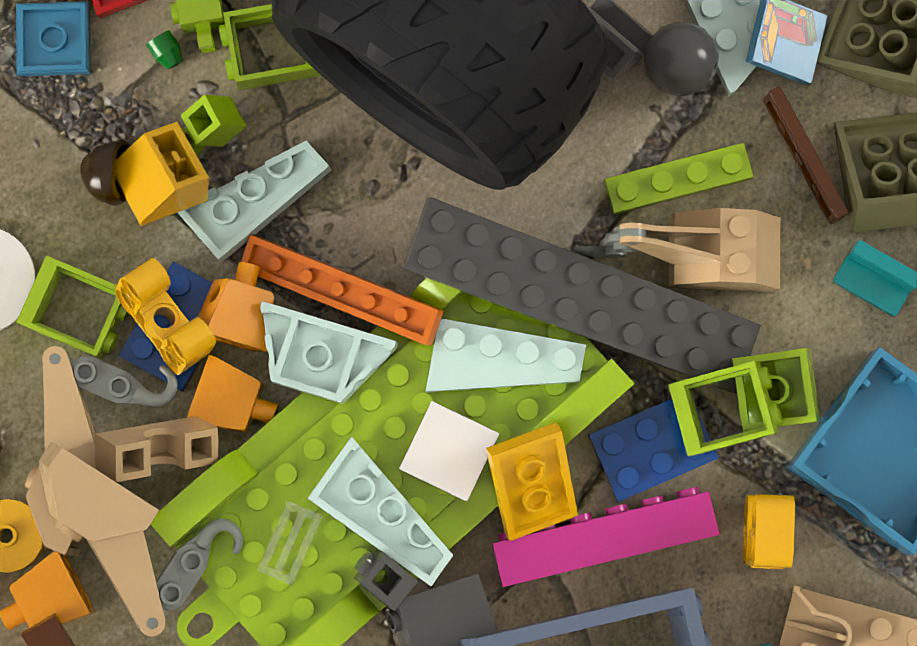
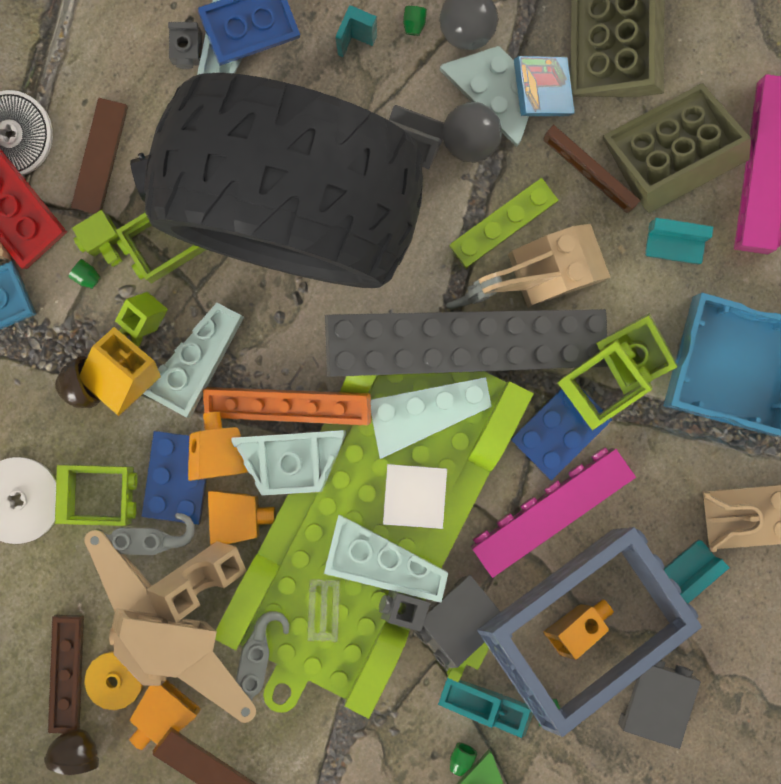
camera: 20 degrees left, 5 degrees up
(144, 296) = (142, 468): yellow beam -> none
(532, 481) = (485, 494): yellow plate -> none
(769, 531) = (673, 462): yellow beam -> none

